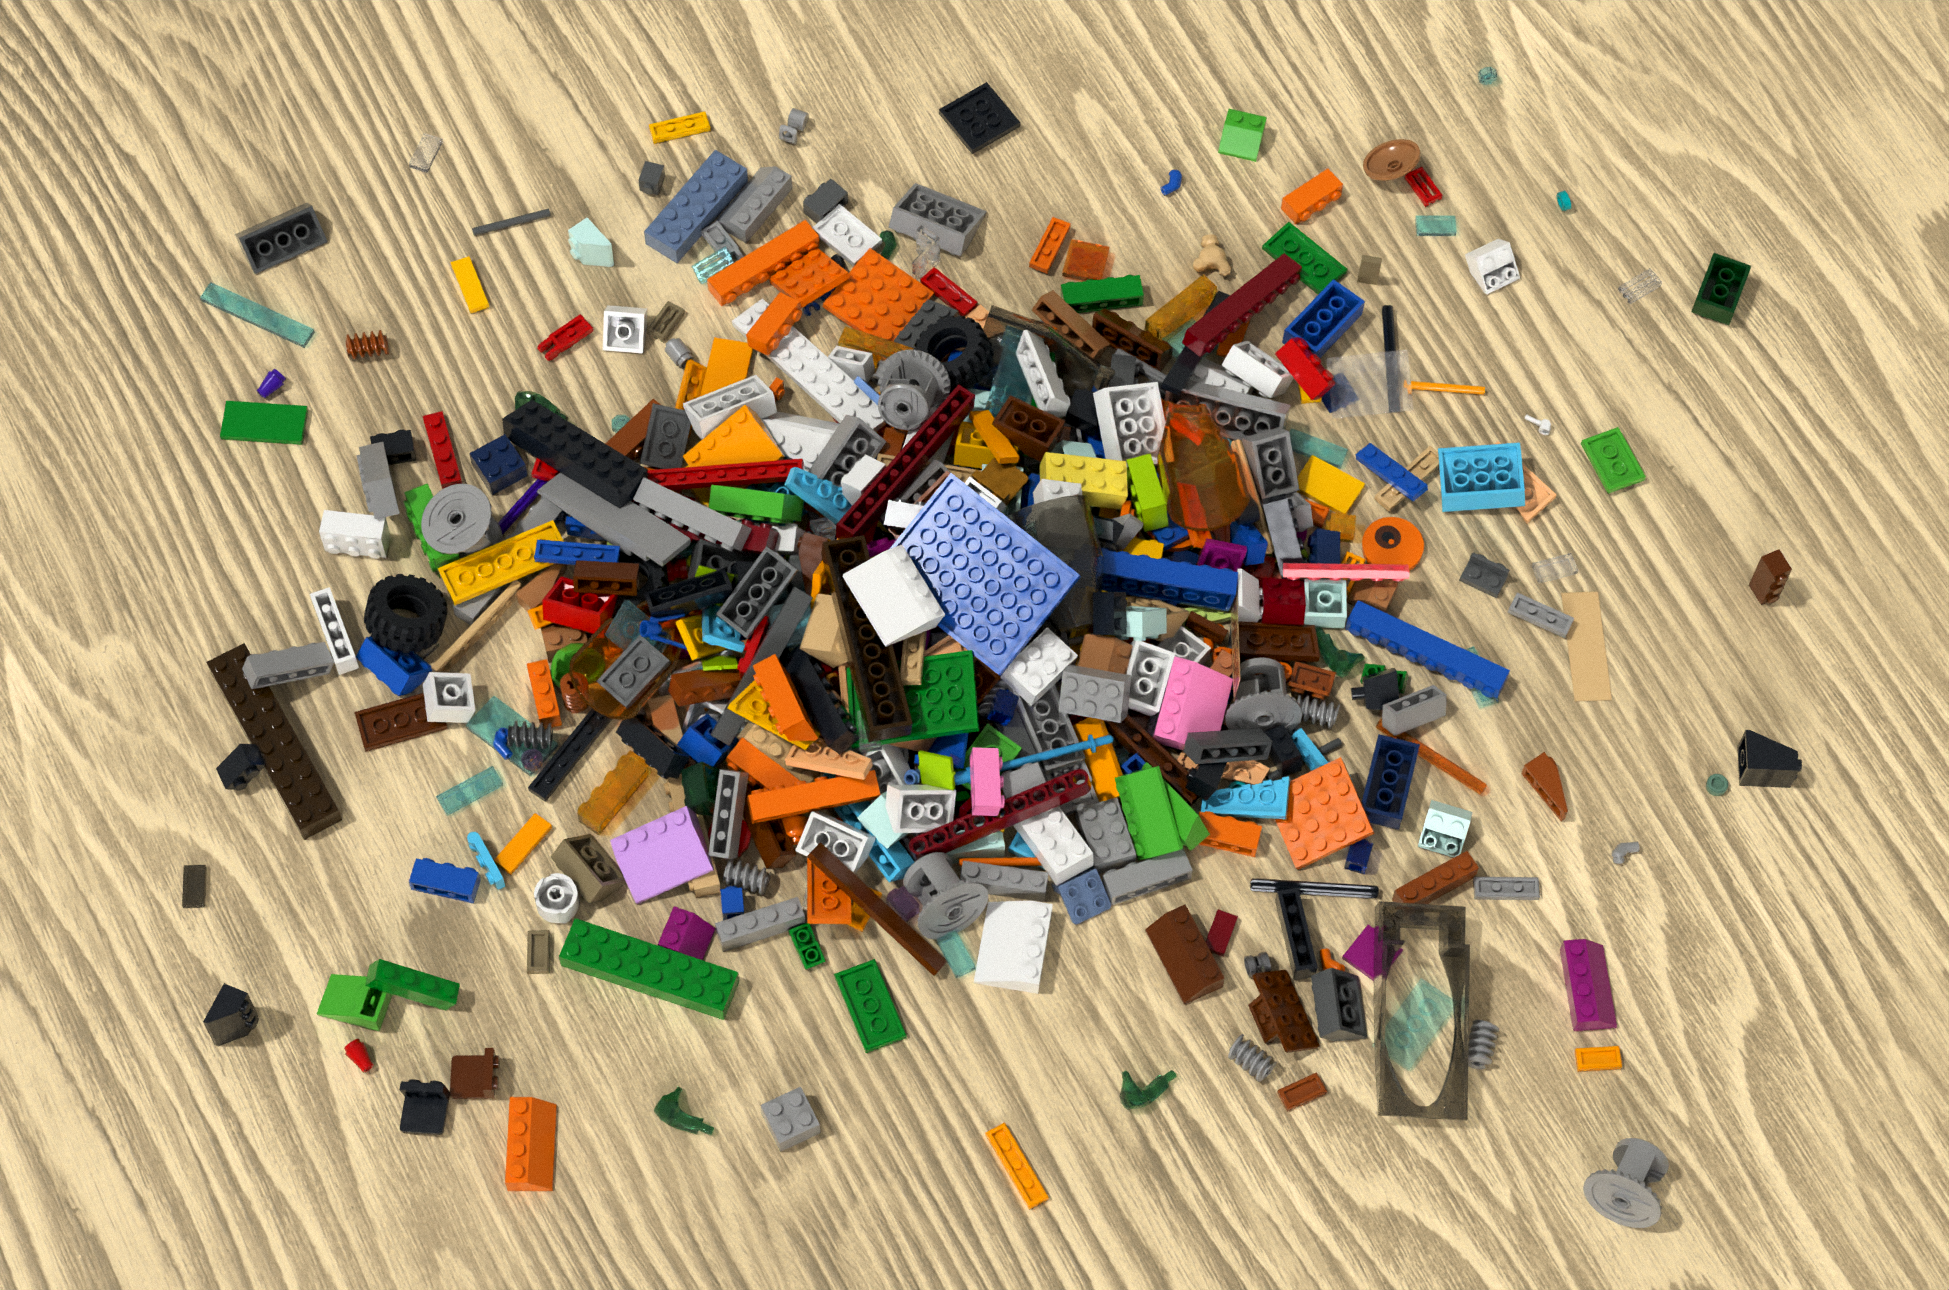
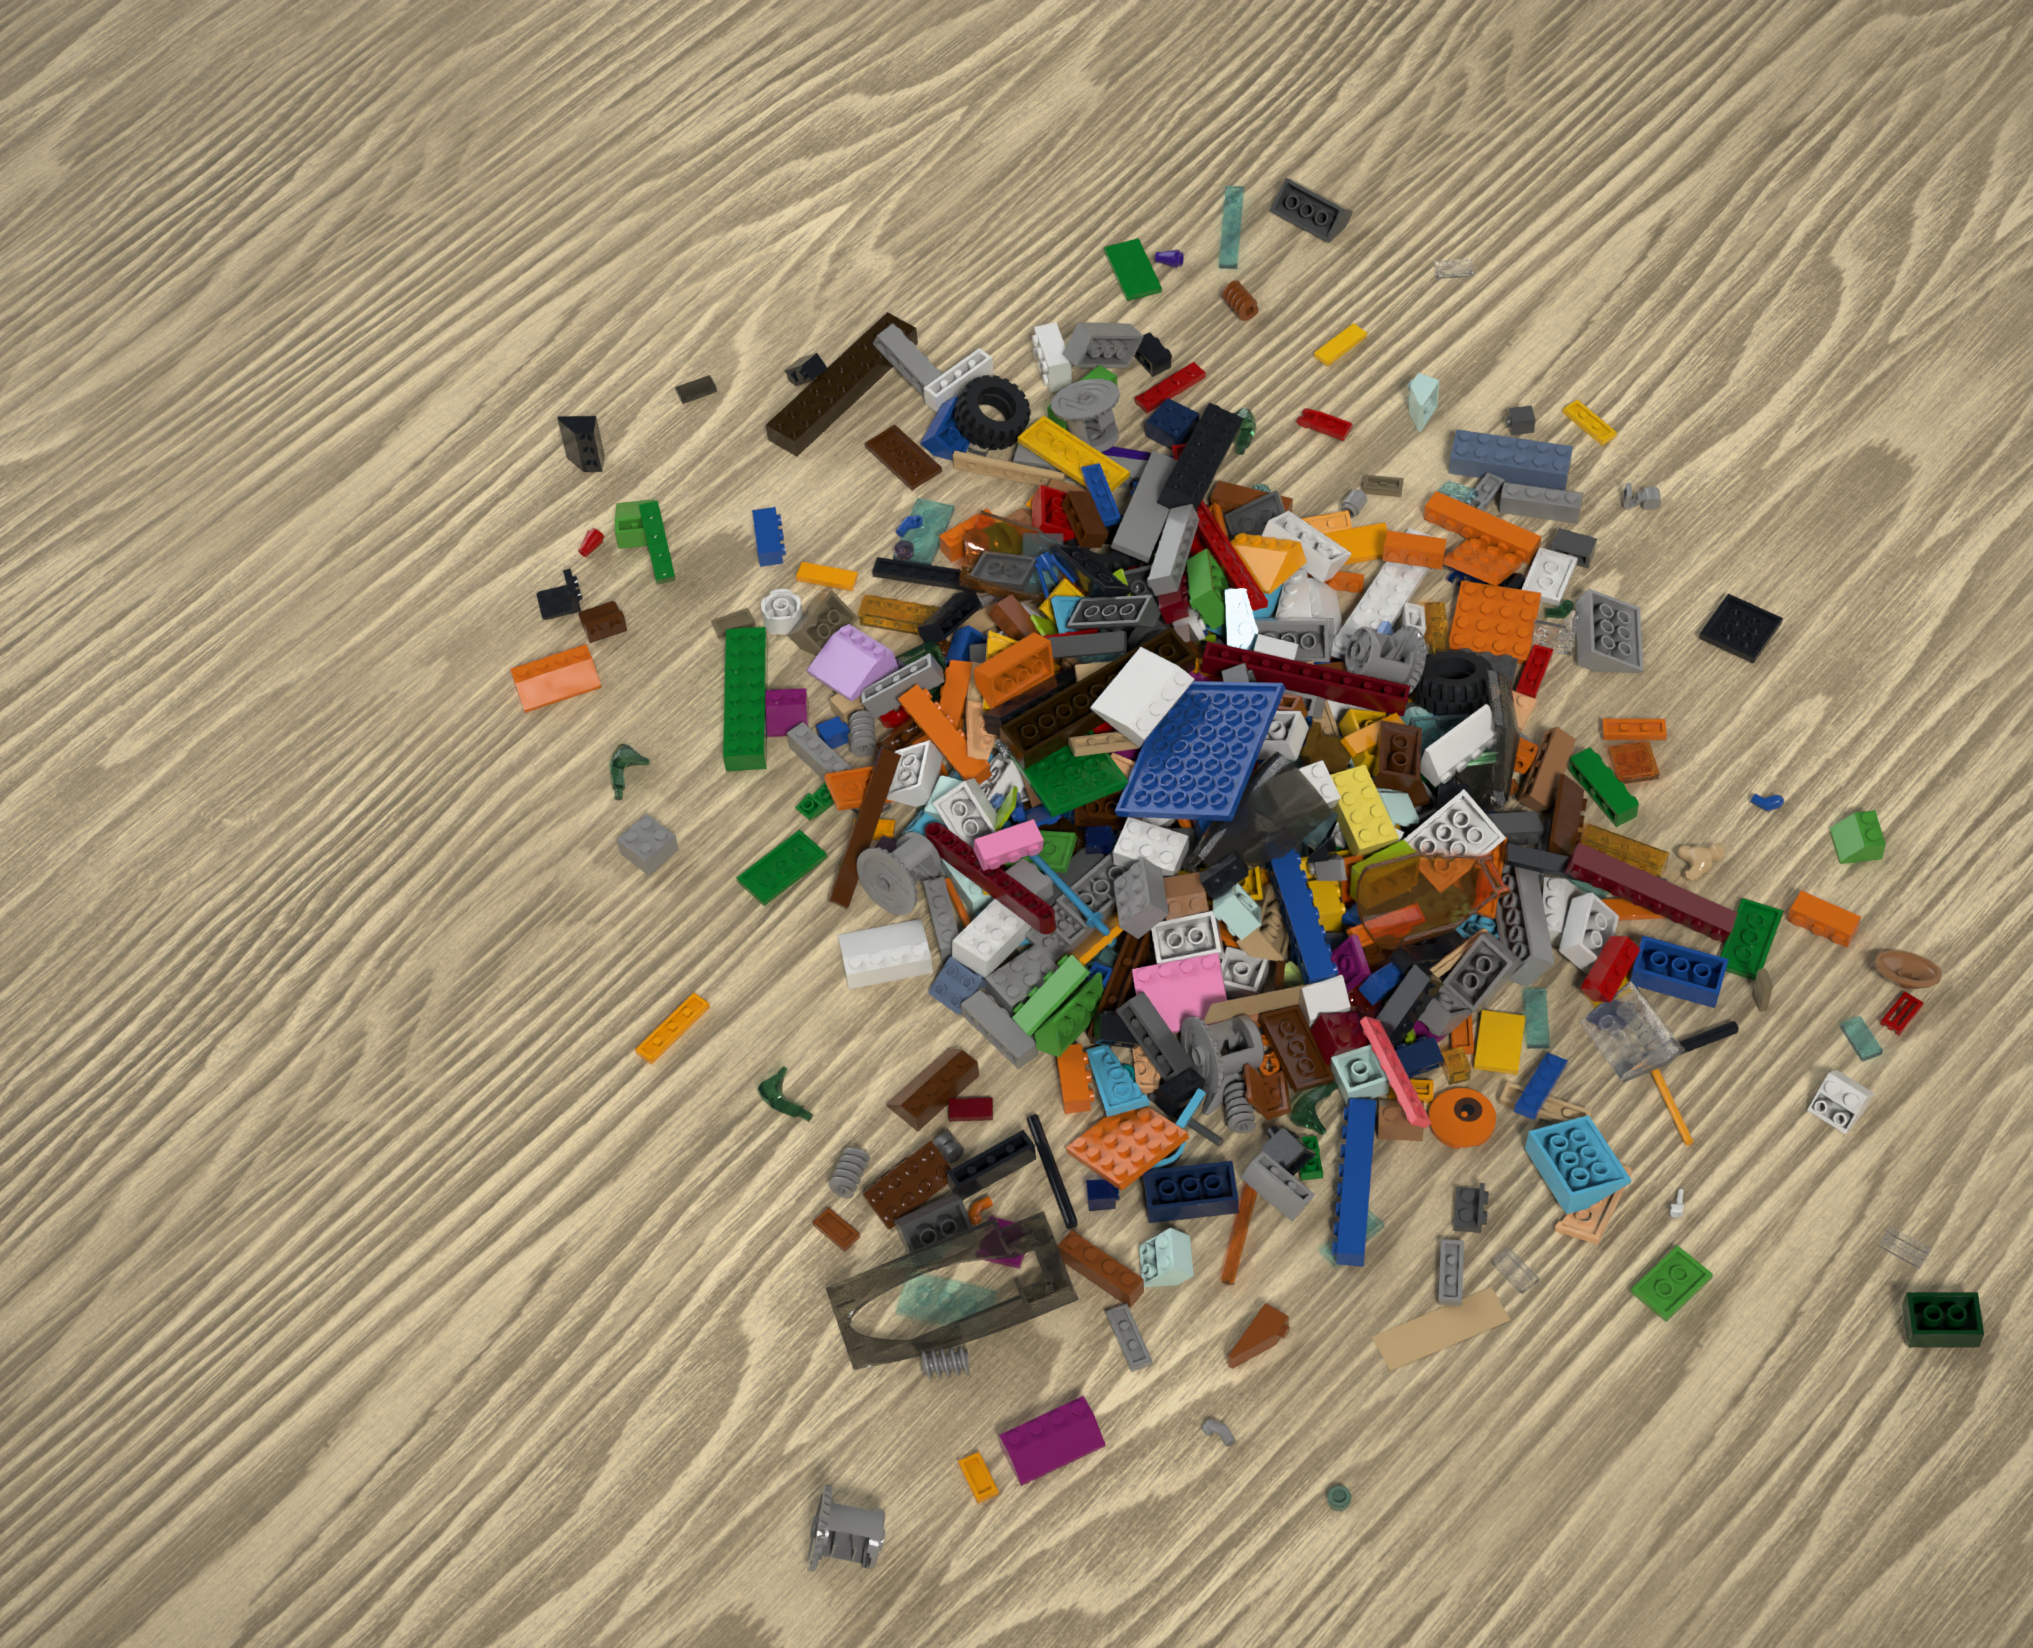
camera: 75 degrees right, 10 degrees down
(448, 697) = (931, 471): white brick -> none
(469, 790) = (859, 524): clear light blue tile -> none
(484, 859) = (800, 553): medium azure plate -> none
(511, 222) = (1420, 348): dark grey bar -> none
(530, 735) = (922, 536): dark grey piece -> none
(624, 329) = (1356, 457): white slope -> none
(956, 954) = (858, 912): clear light blue tile -> none
(1563, 200) = (1963, 1141): teal tile -> none
(1766, 762) = (1375, 1526): black slope -> none
(1770, 577) = (1599, 1463): reddish brown brick -> none

